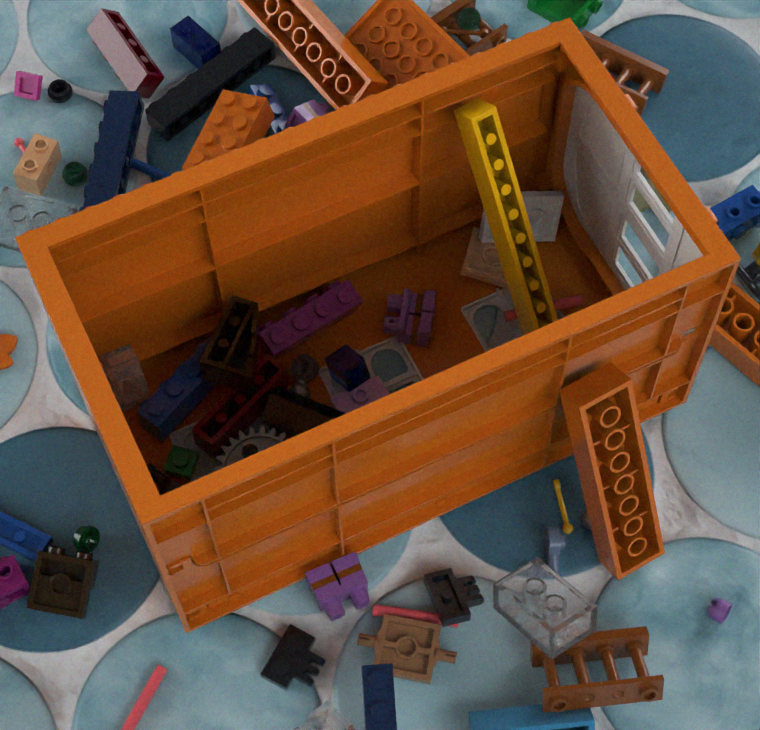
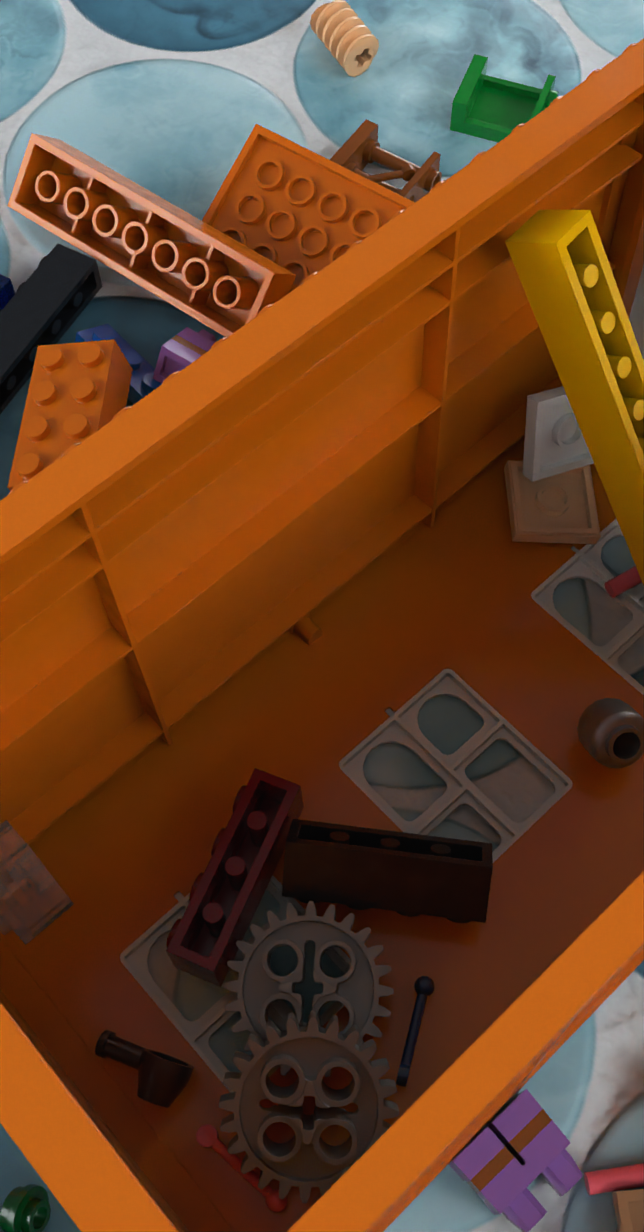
camera: 15 degrees left, 0 degrees up
(175, 397) = (126, 870): blue brick -> none
(181, 462) = (160, 1010): green plate -> none
(233, 348) = (196, 777): dark brown wedge -> none
(298, 370) = (311, 781): flat silver plate -> none
(310, 320) = (294, 693): magenta brick -> none
(347, 368) = (395, 750): brick -> none
(362, 395) = (433, 796): lavender plate -> none
(415, 317) = (472, 631): medium lavender hips -> none
(469, 19) = (380, 156): clear green plate -> none

